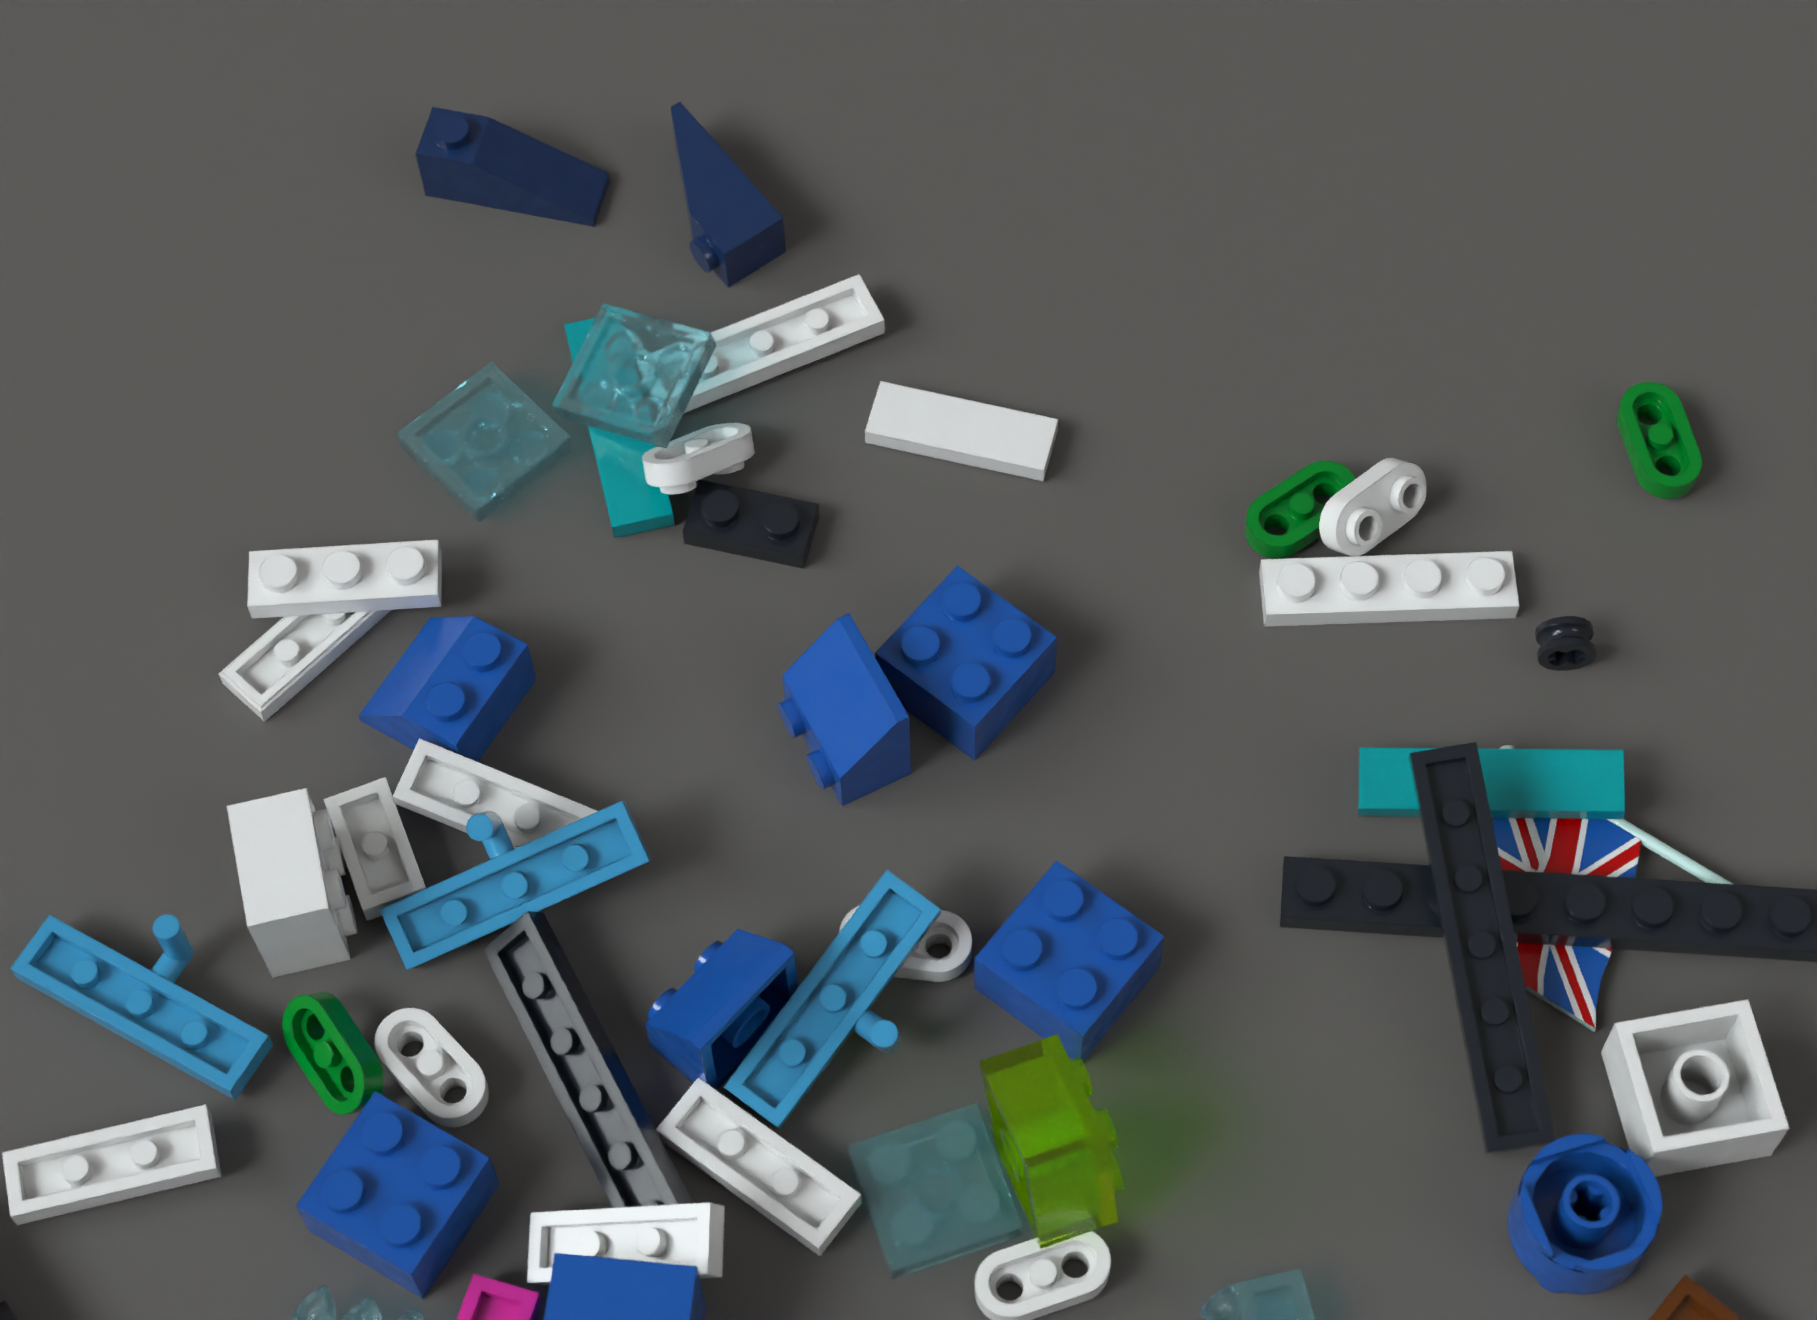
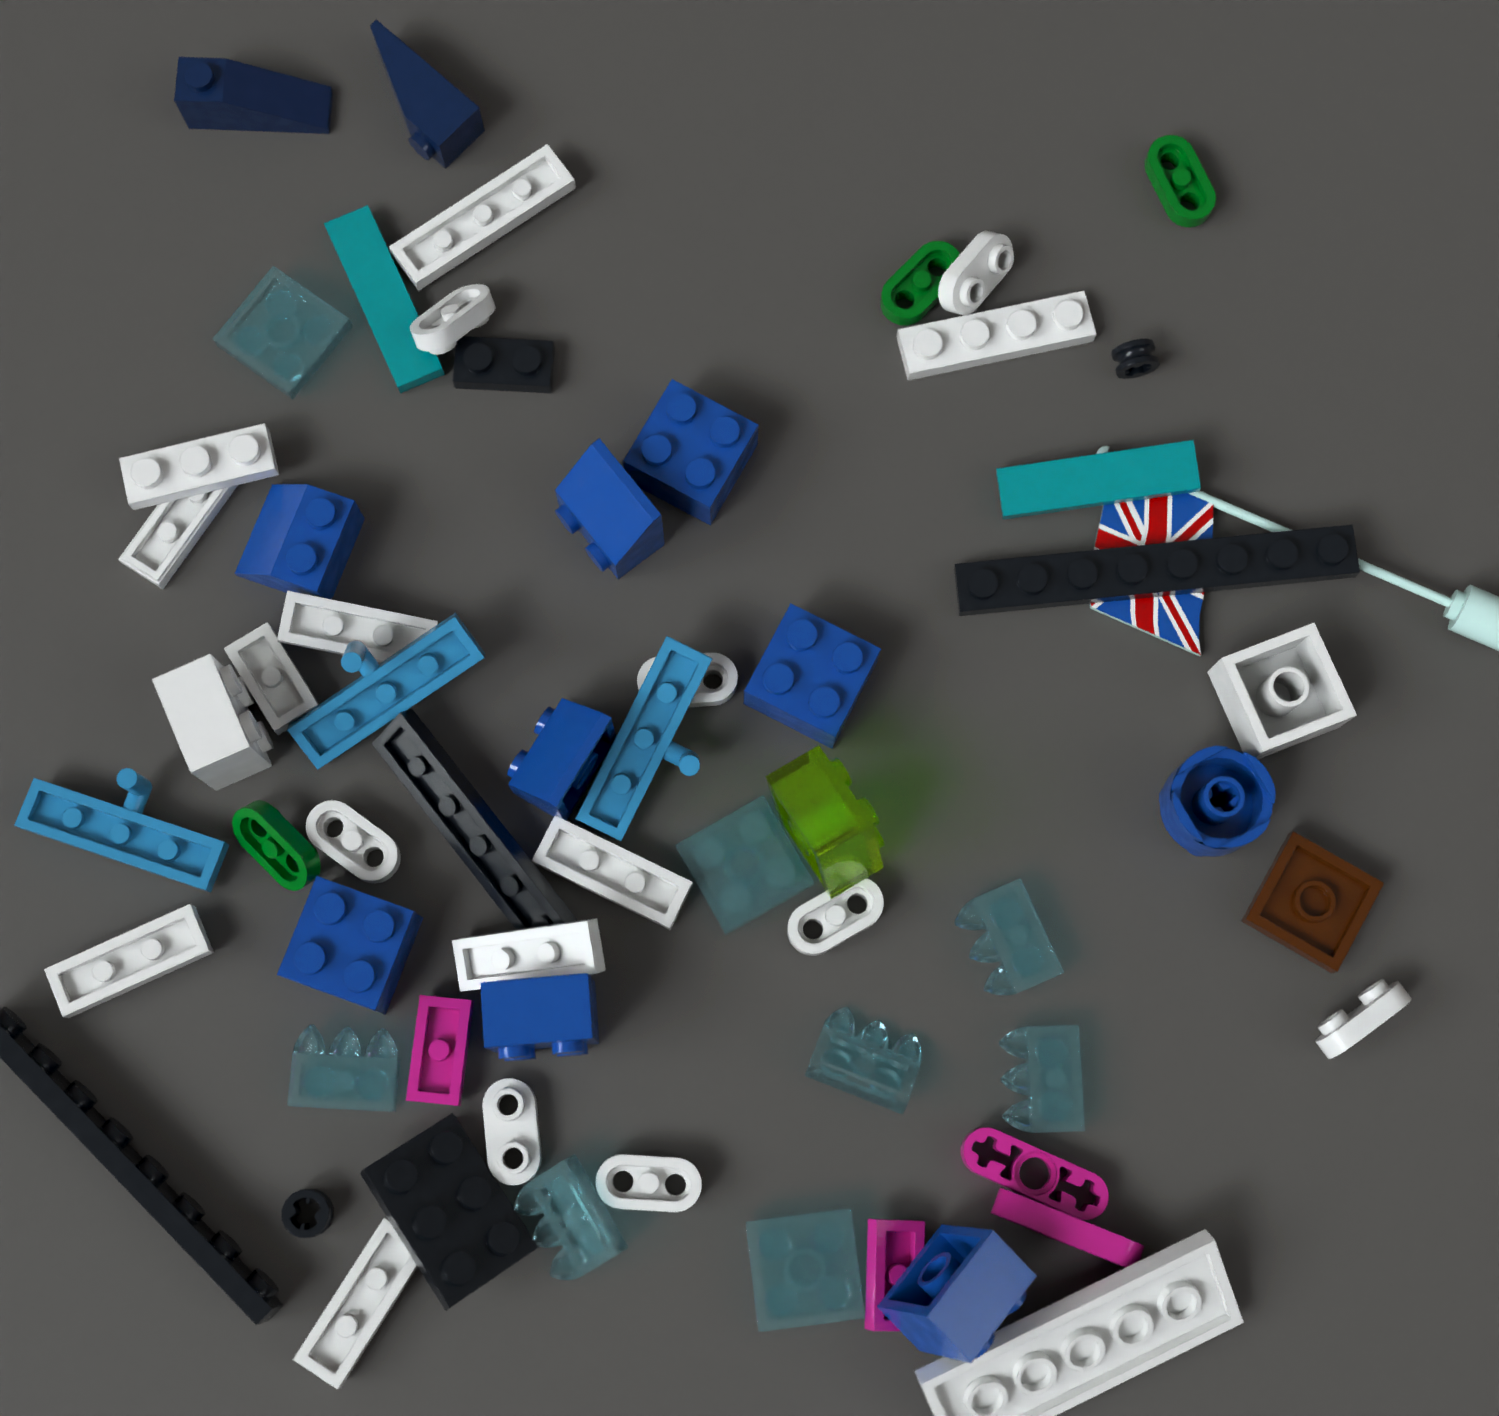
camera: 15 degrees left, 15 degrees up
(634, 375) = (389, 260): clear light blue plate -> none
(961, 431) = (650, 260): white tile -> none
(1481, 949) = (1113, 612): black plate -> none

